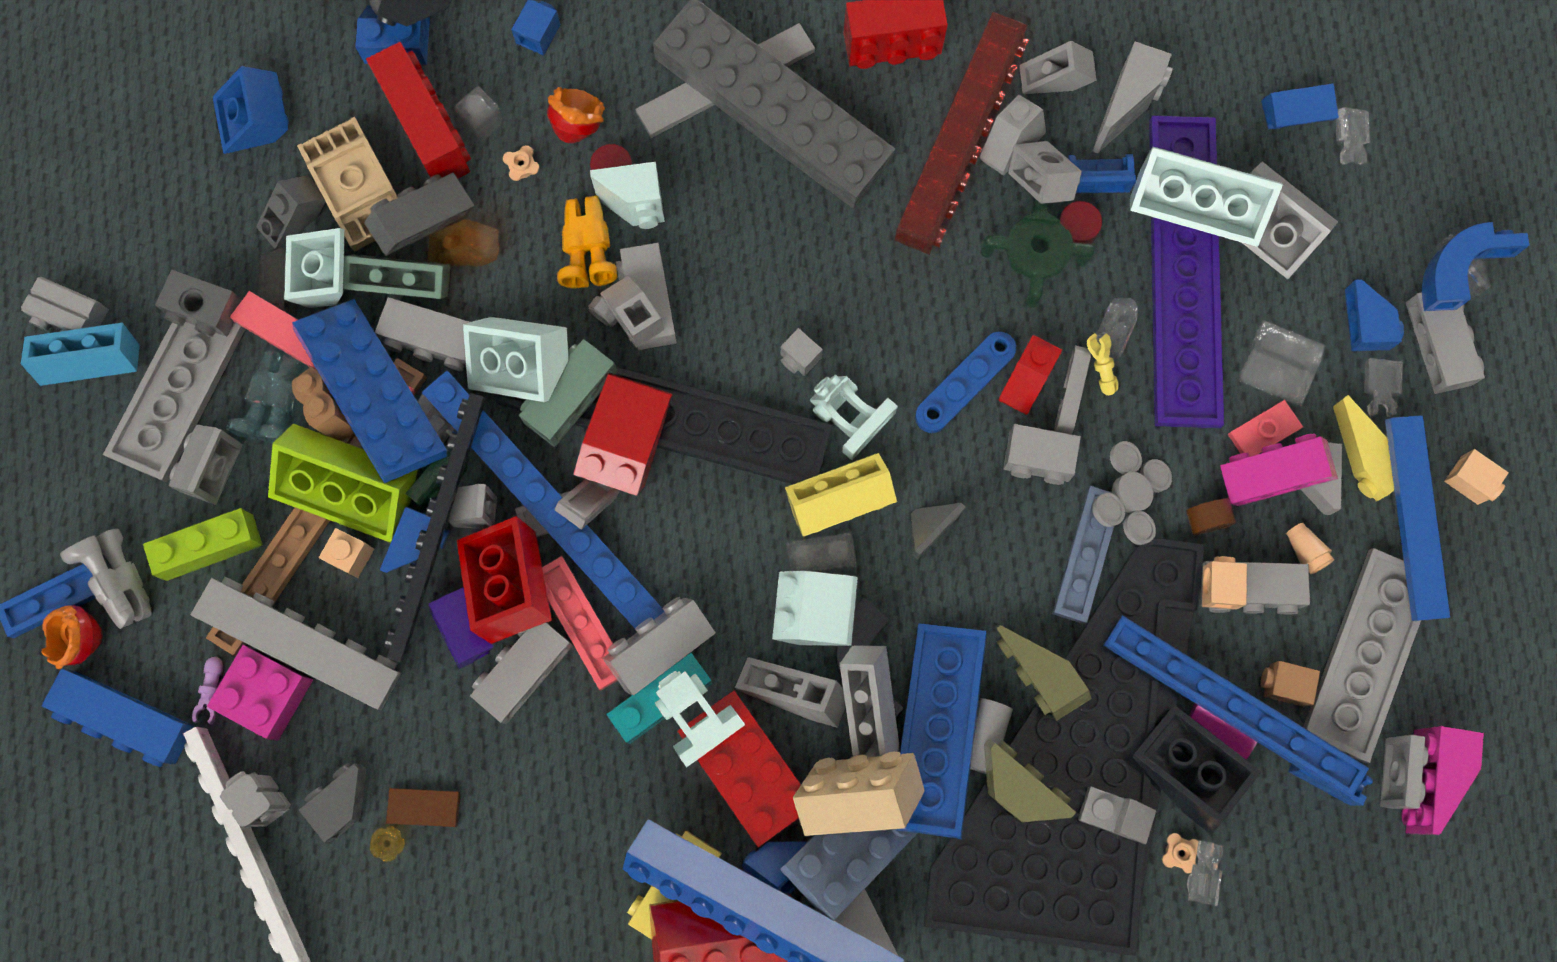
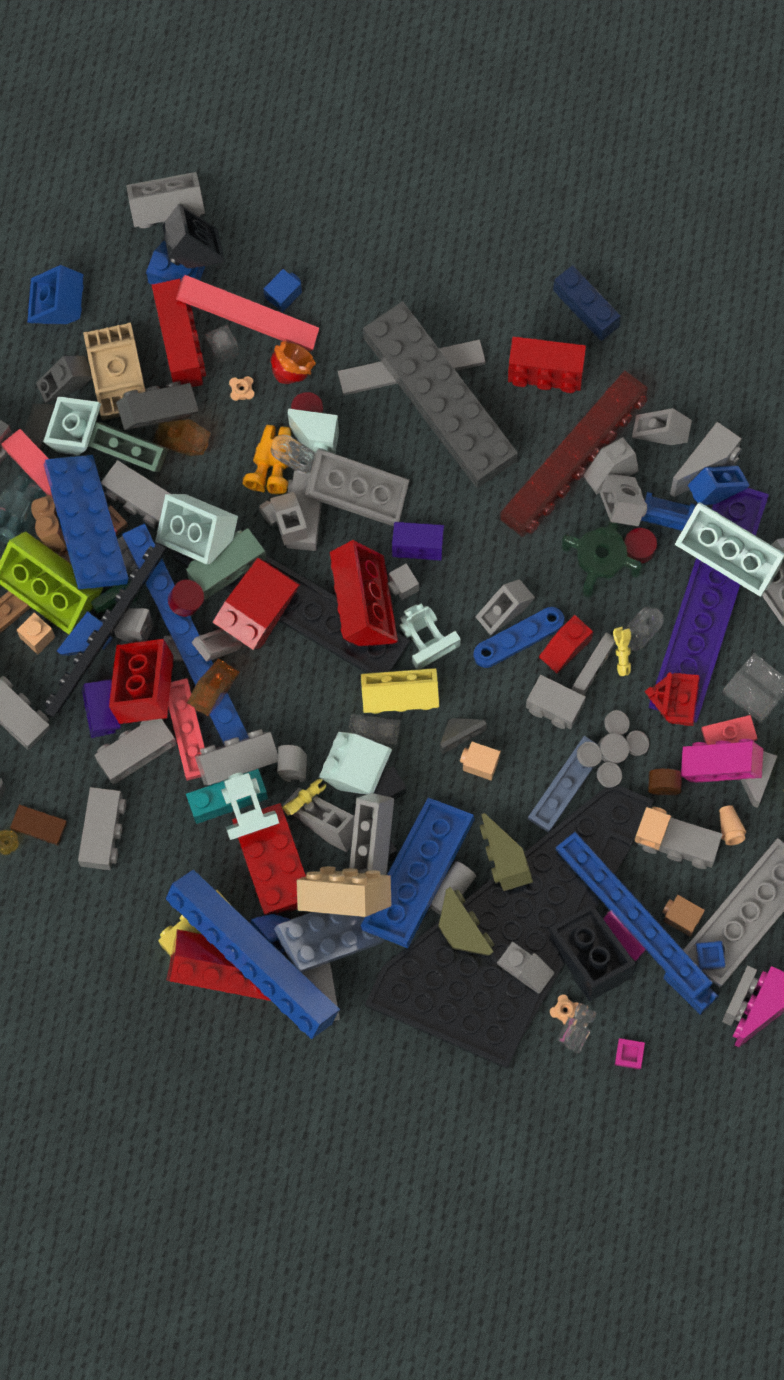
camera: 20 degrees right, 5 degrees down
(497, 64) = (247, 313): none -> coral tile
(508, 790) = (101, 829): none -> light grey brick
(529, 453) = (185, 598): none -> dark red piece
(600, 561) = (212, 687): none -> clear orange slope
(614, 226) = (294, 453): none -> clear plate
(705, 248) = (356, 487): none -> light grey tile
(732, 631) = (292, 763): none -> light grey beam
(753, 685) = (304, 797): none -> light yellow piece
(756, 385) = (363, 595): none -> red slope
(802, 295) = (417, 541): none -> dark purple hinge
(937, 348) = (505, 606): none -> light grey slope
(970, 555) = (480, 760): none -> light nougat brick
(1153, 121) = (717, 484): none -> blue slope
(1191, 405) = (676, 697): none -> red slope
(1281, 886) = (629, 1053): none -> dark pink tile
(1345, 727) = (710, 955): none -> blue tile

